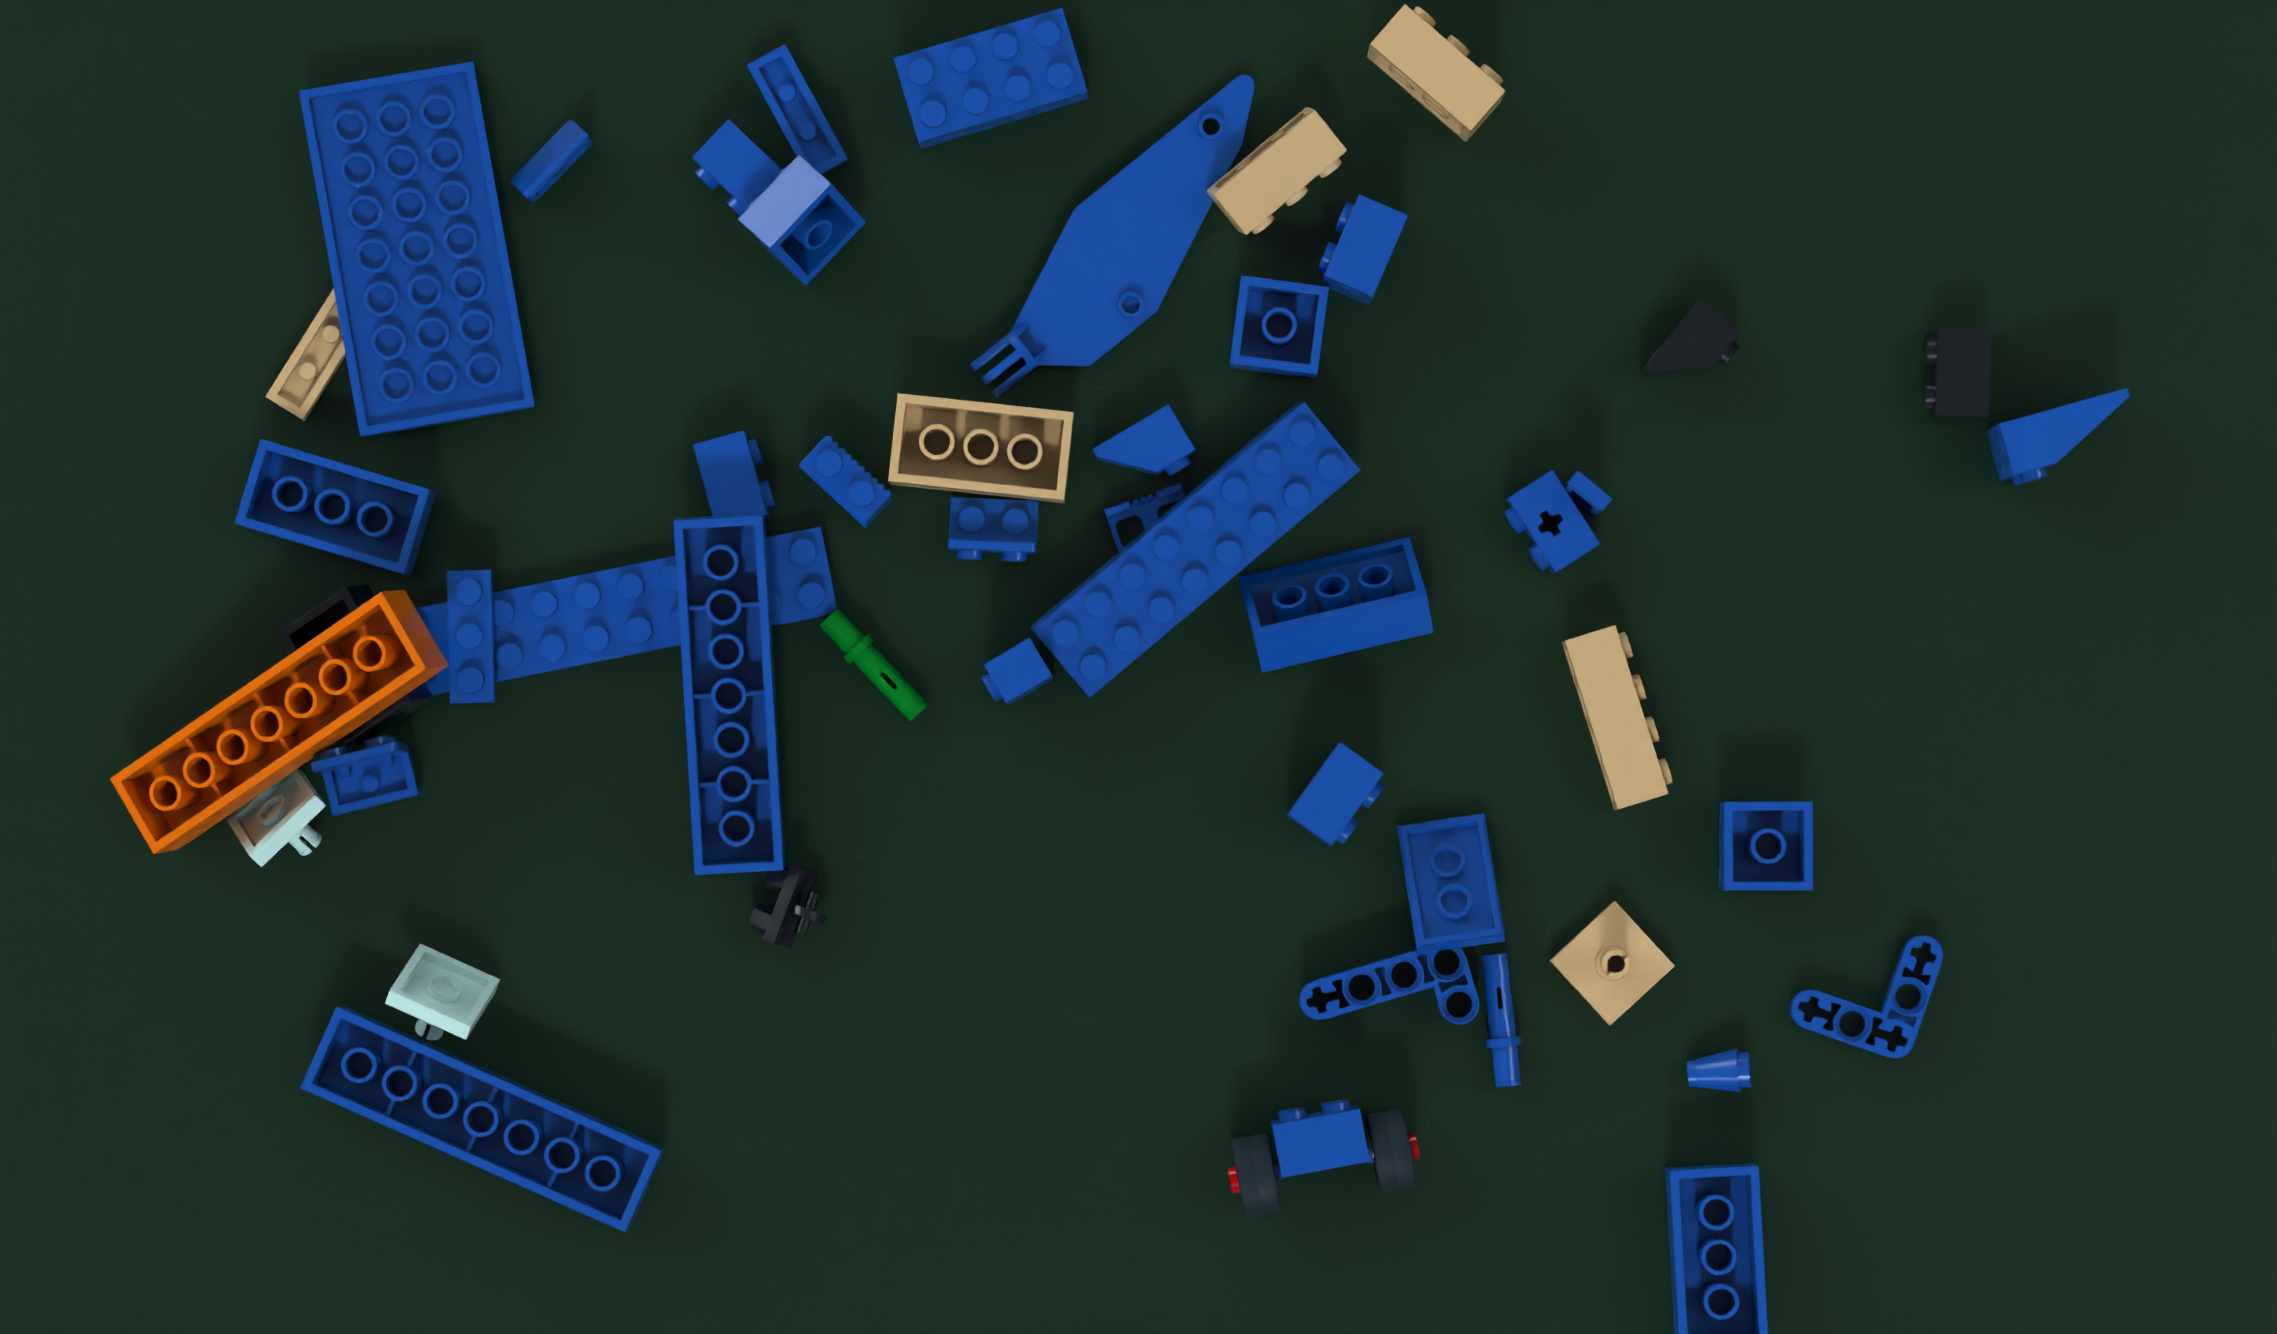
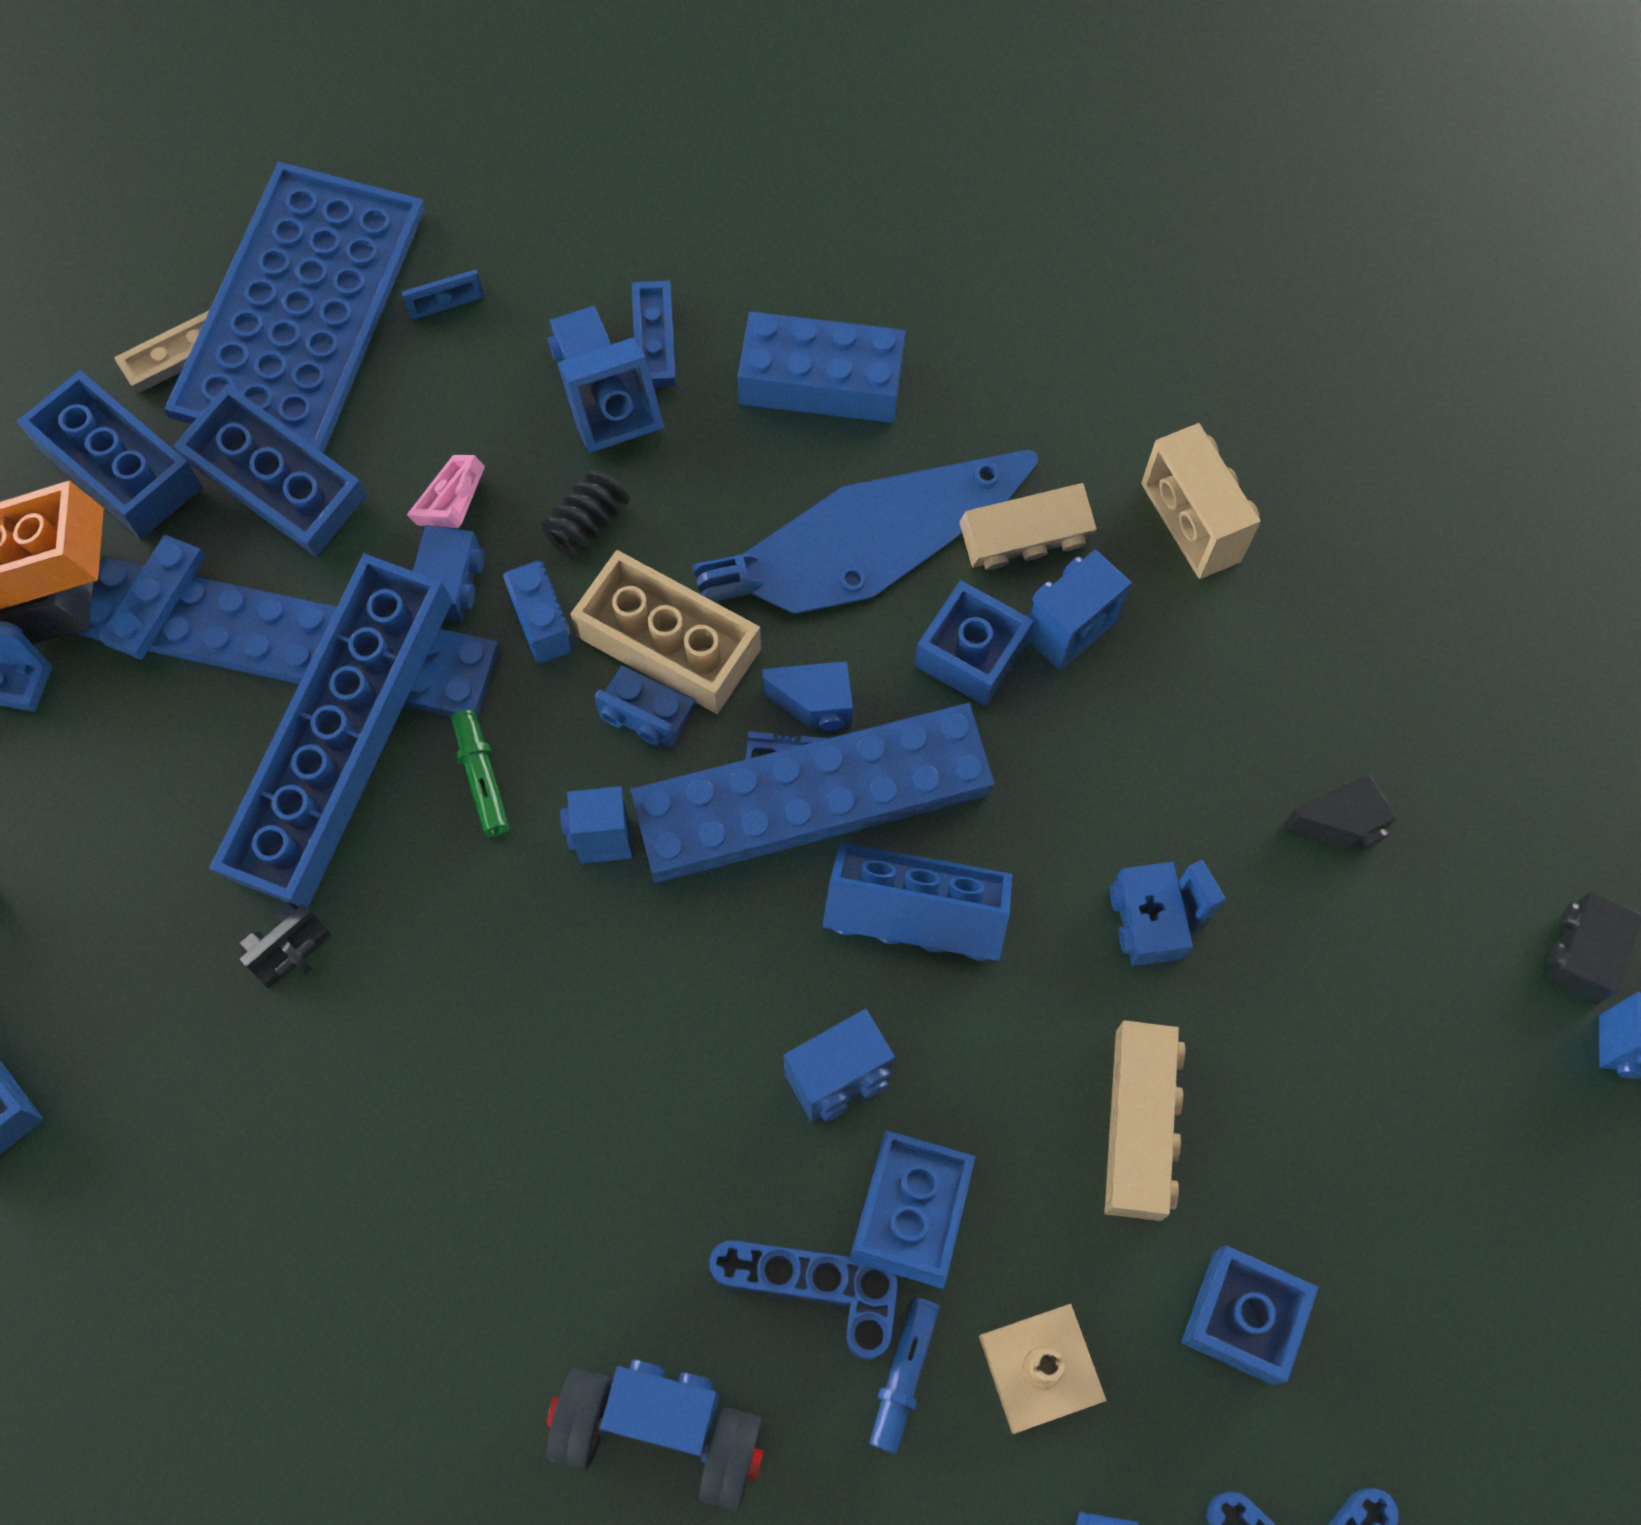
camera: 20 degrees right, 20 degrees down
(514, 459) = (271, 470): none -> blue brick
(692, 395) = (449, 493): none -> bright pink wing
(835, 354) = (582, 510): none -> black piece

